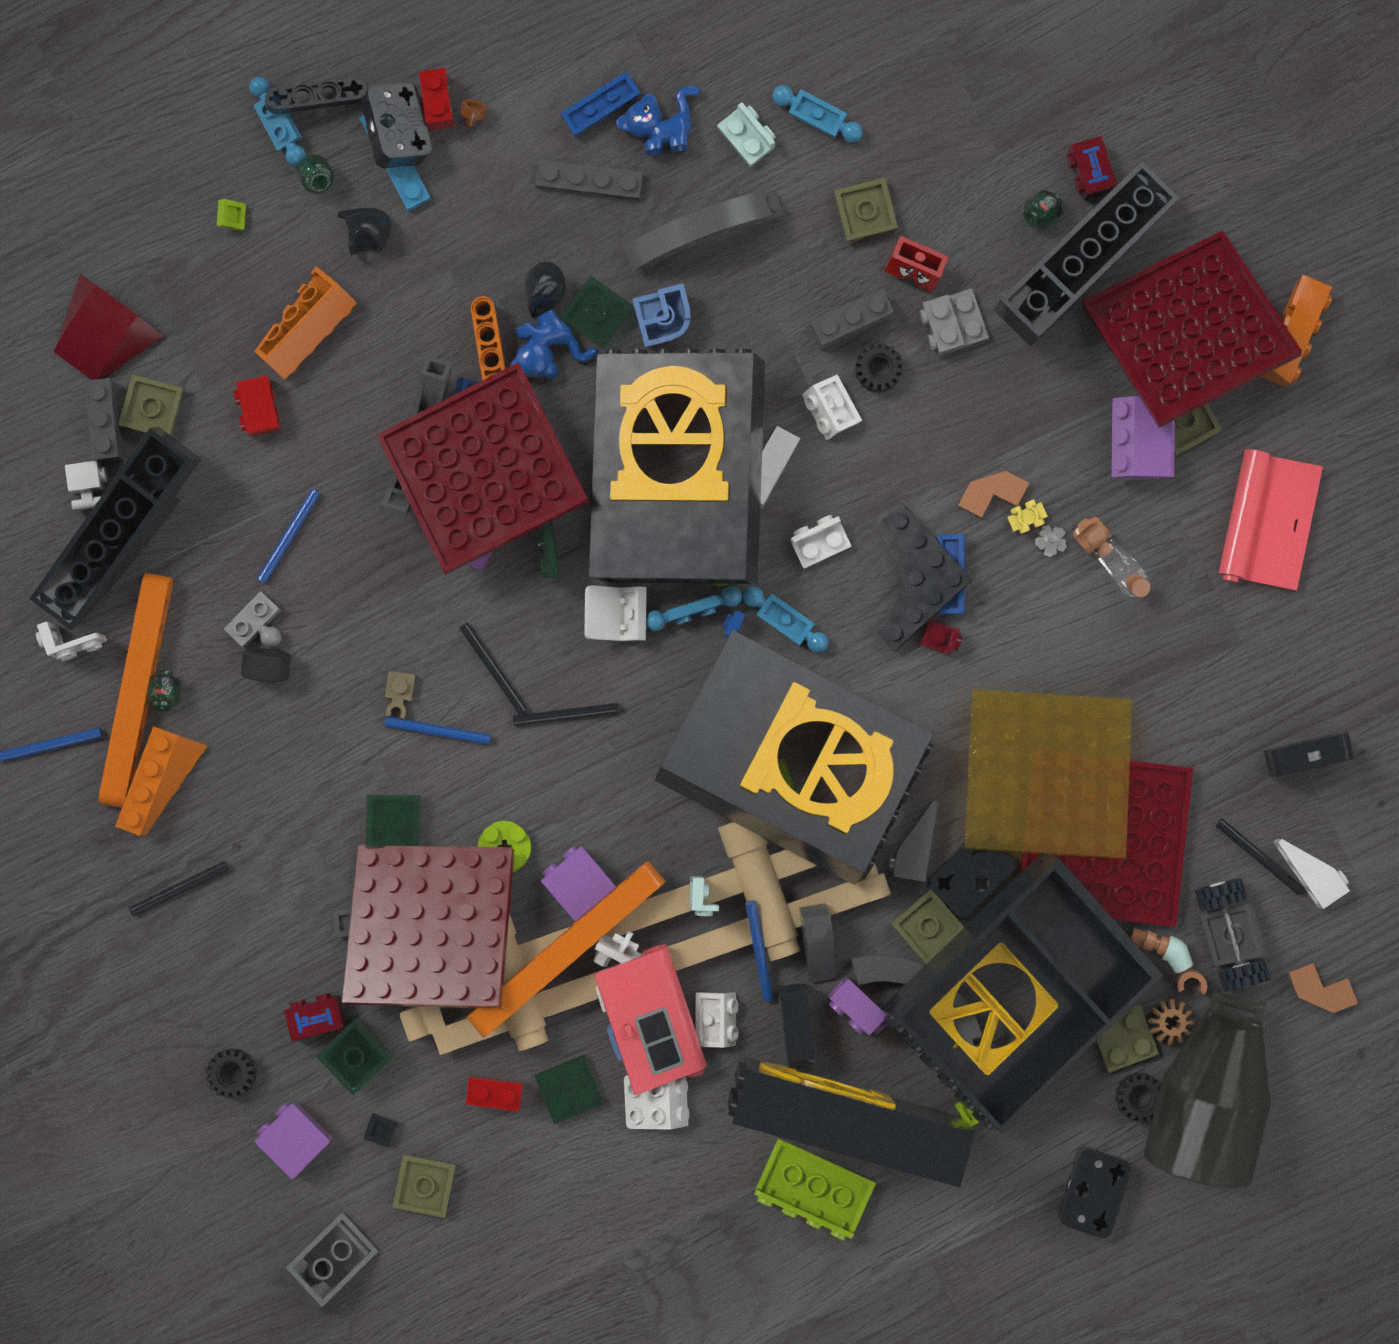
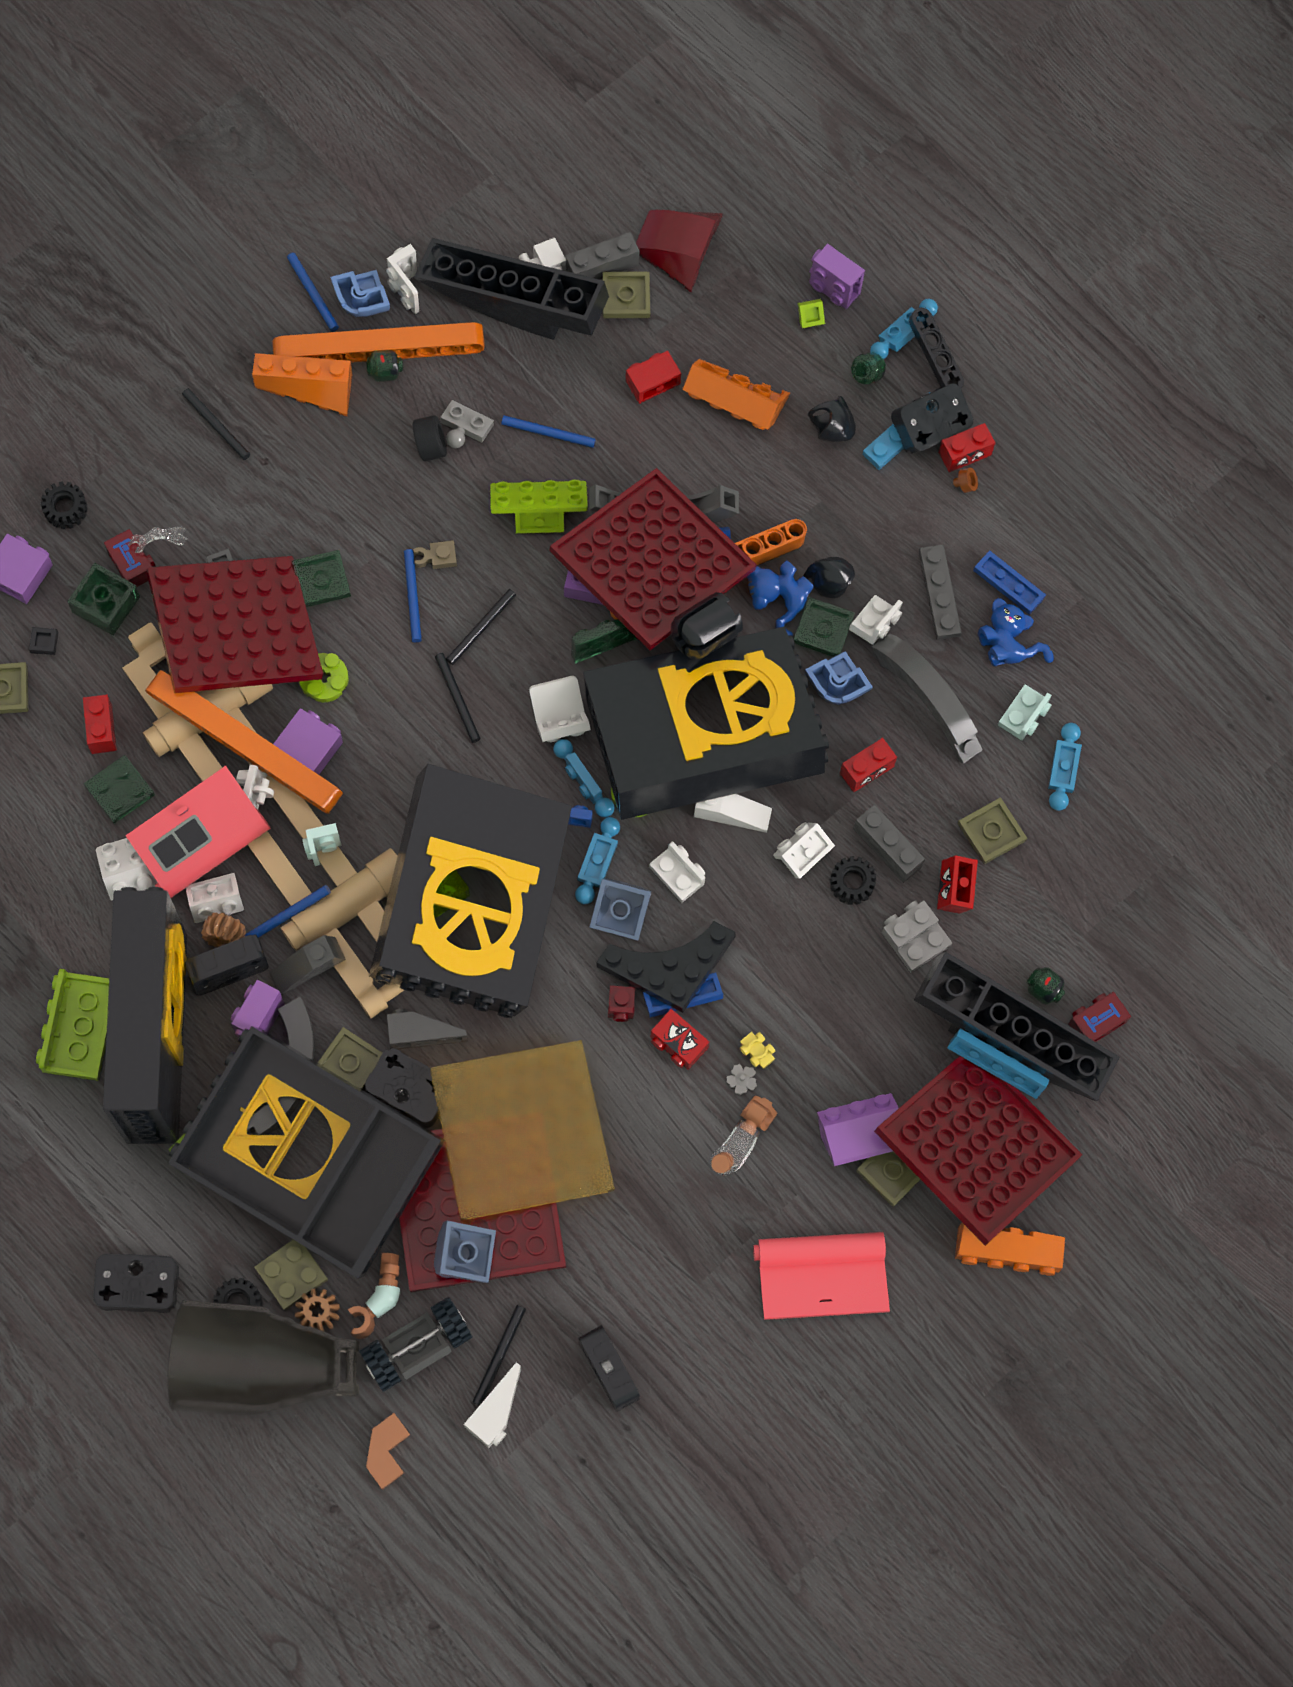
camera: 65 degrees right, 15 degrees down
(71, 693) = (361, 293): none -> medium blue brick
(198, 175) = (836, 276): none -> medium lavender brick
(295, 984) = (156, 533): none -> clear piece
(371, 569) = (539, 505): none -> lime bracket
(583, 436) = (705, 626): none -> black cylinder
(604, 256) = (875, 619): none -> white bracket
(759, 1019) = (222, 929): none -> medium nougat gear
(761, 313) = (868, 765): none -> red brick
(844, 610) = (620, 908): none -> sand blue slope
(997, 590) = (679, 1040): none -> red brick
(1002, 485) = (767, 1002): nougat tile -> none
(1117, 278) = (998, 1063): none -> dark azure plate
(1158, 864) = (464, 1252): none -> sand blue slope

